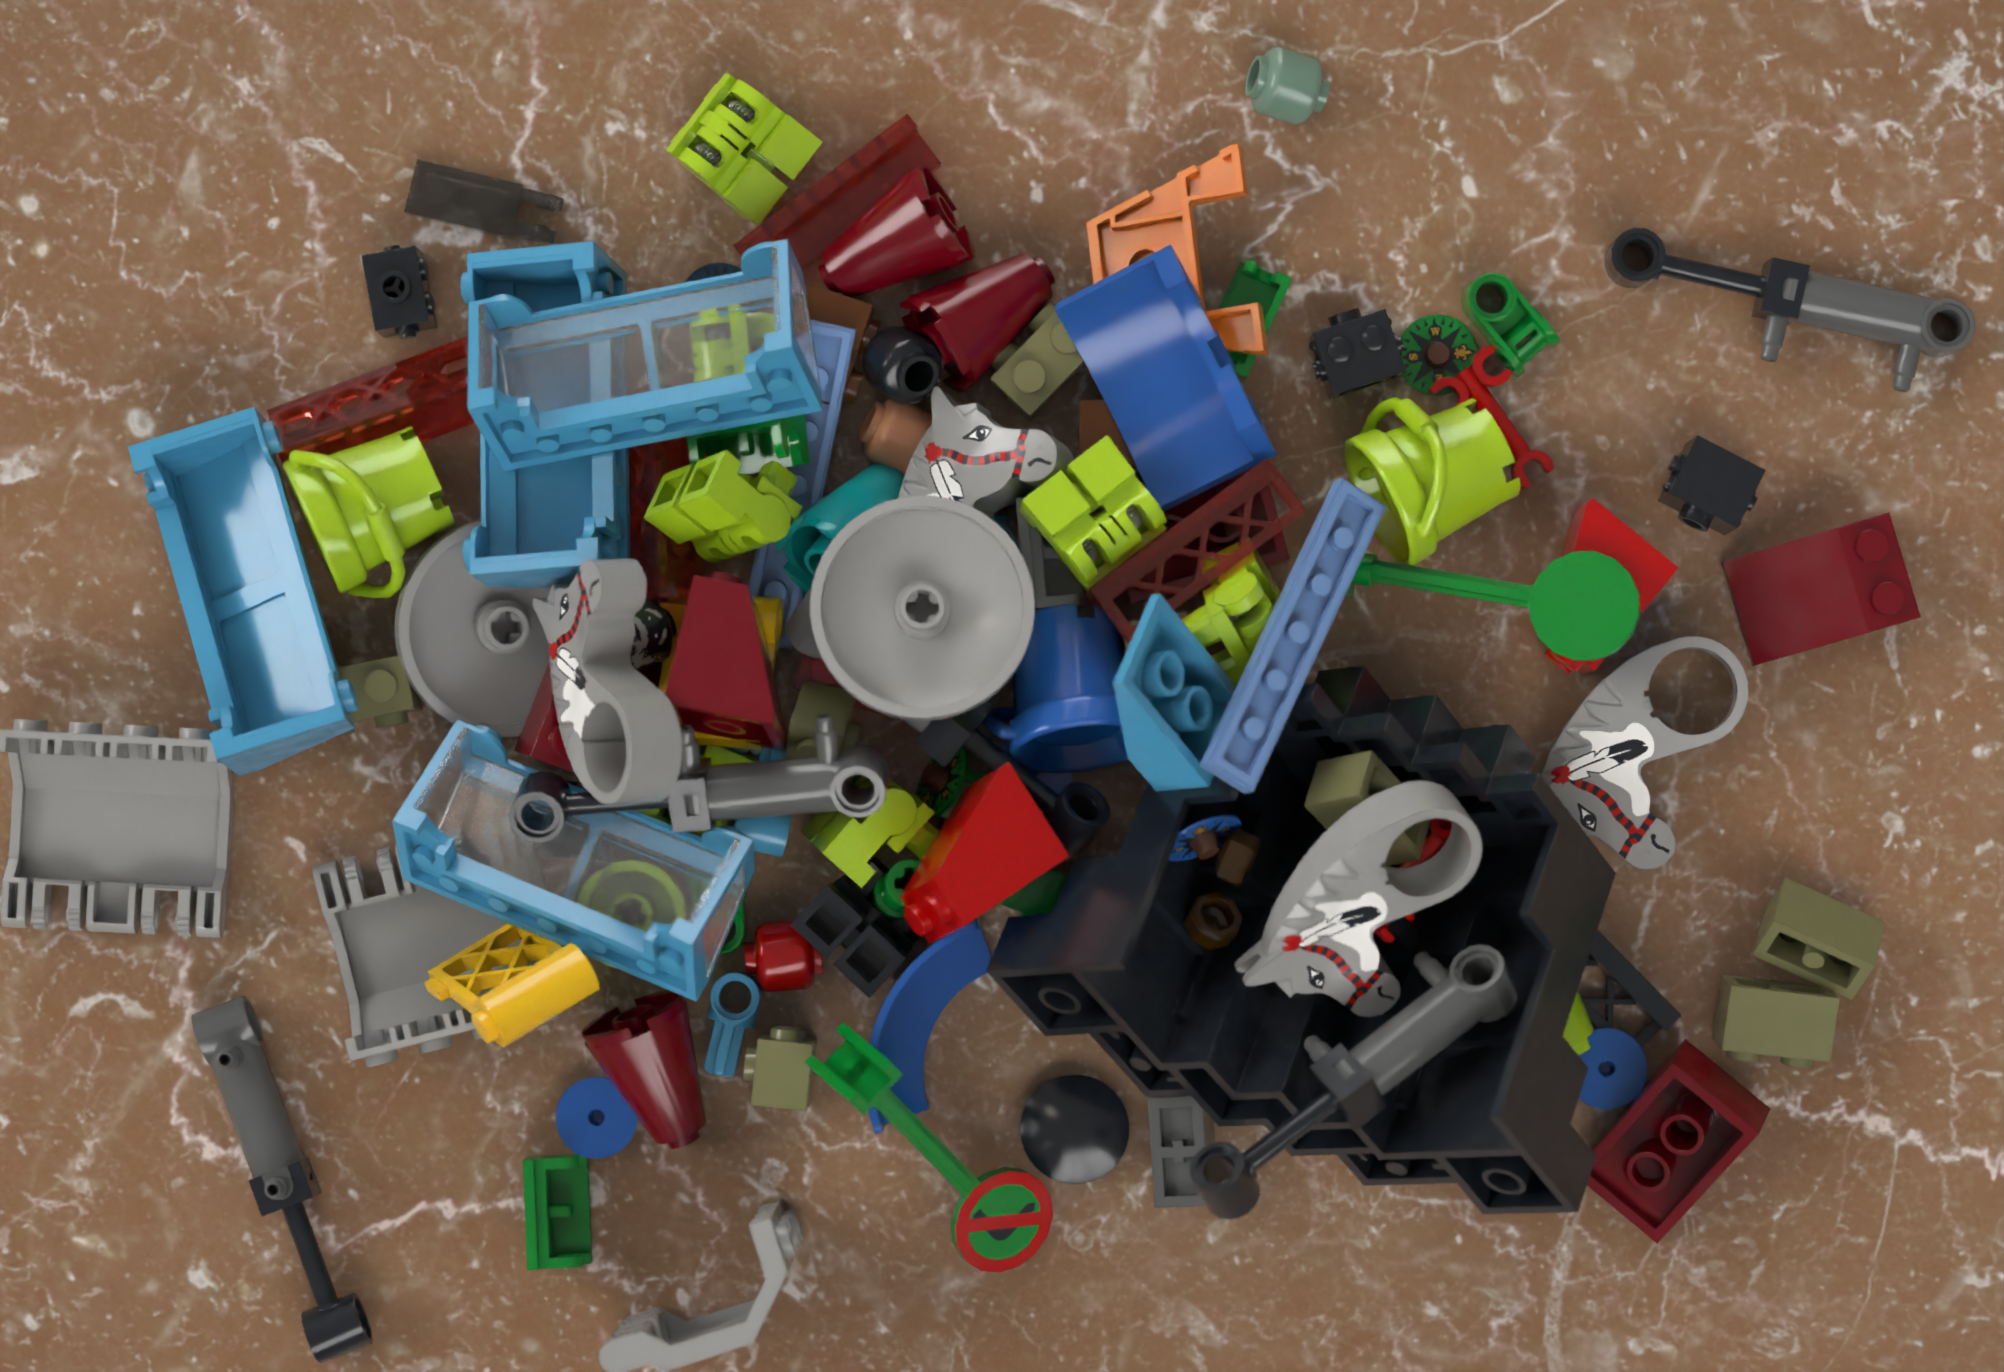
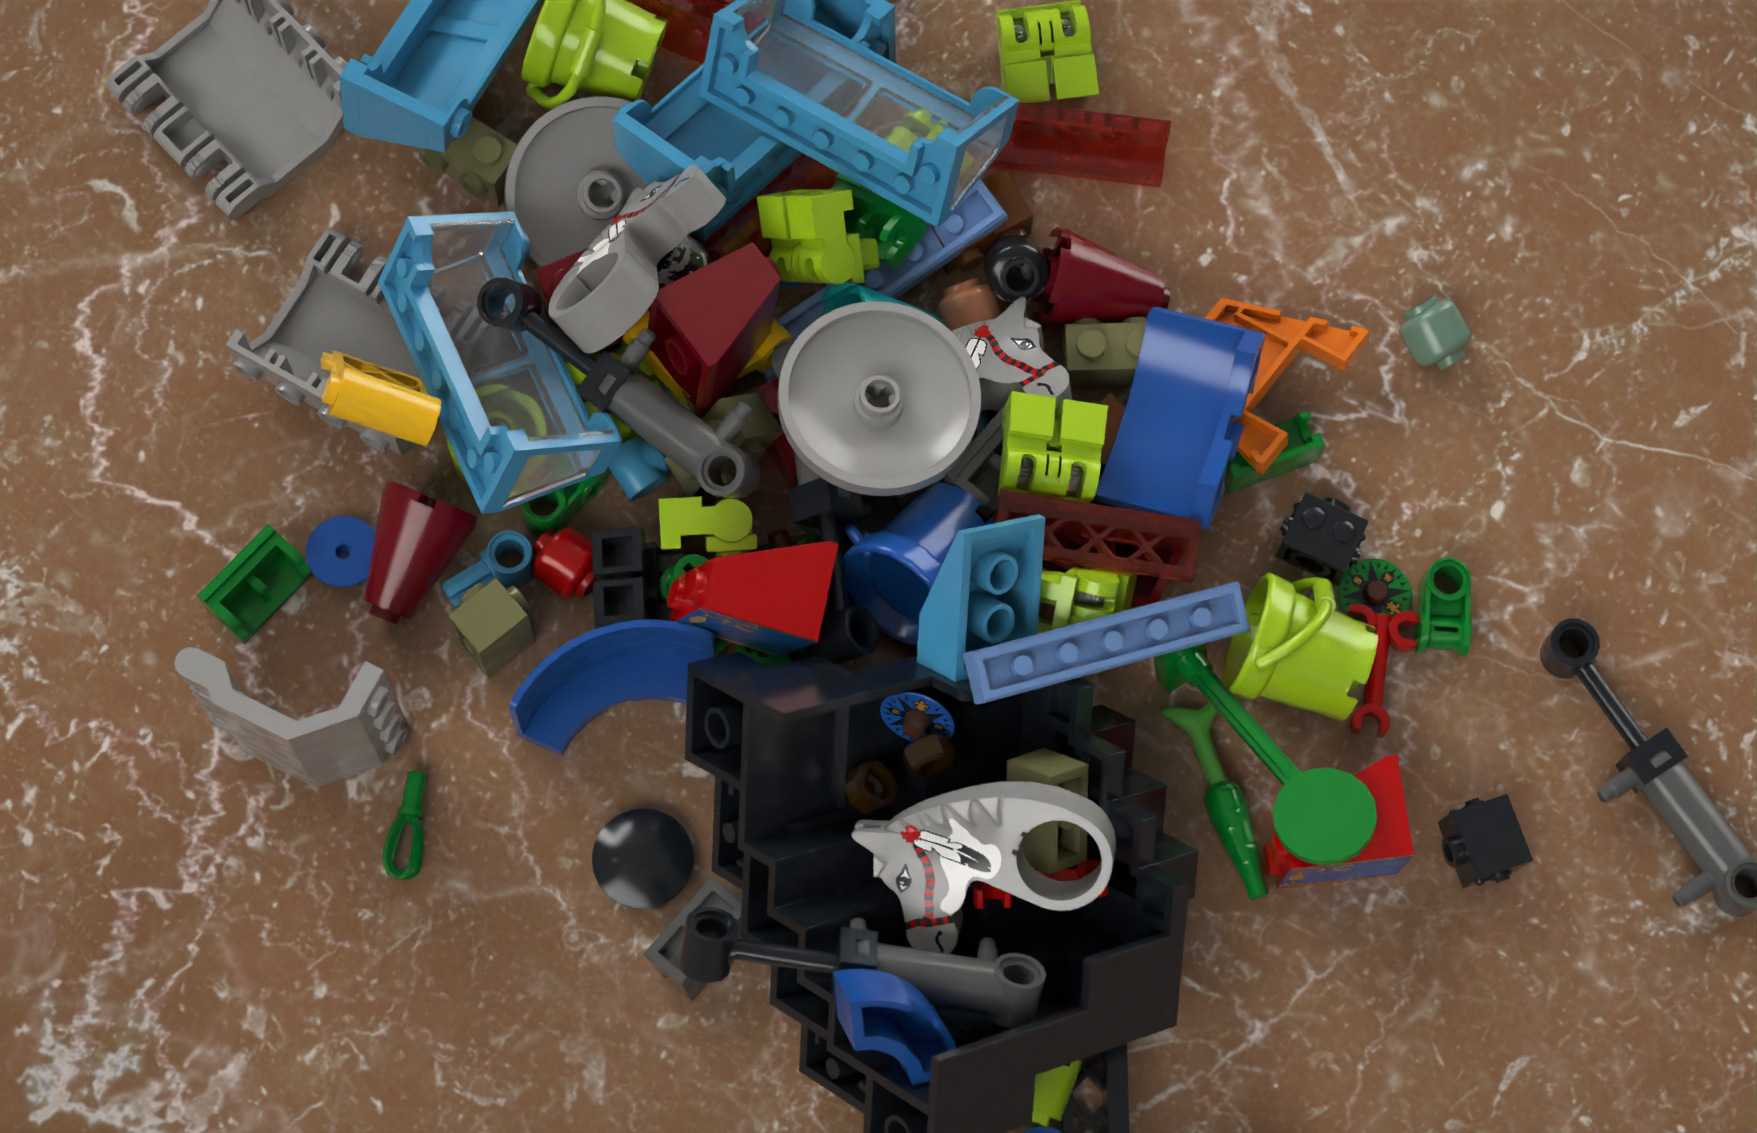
camera: 40 degrees right, 15 degrees down
(280, 1174) = (109, 393): piece -> none
(860, 1268) = (408, 812): none -> green piece
(898, 239) = (1090, 194): dark red cone -> none
(998, 1215) = (535, 860): green piece -> none
(1425, 1106) = (892, 1018): none -> blue brick
(1476, 646) = (1223, 798): none -> green piece
(1609, 740) = (1259, 947): light grey animal -> none
(1821, 589) = (1499, 982): dark red slope -> none

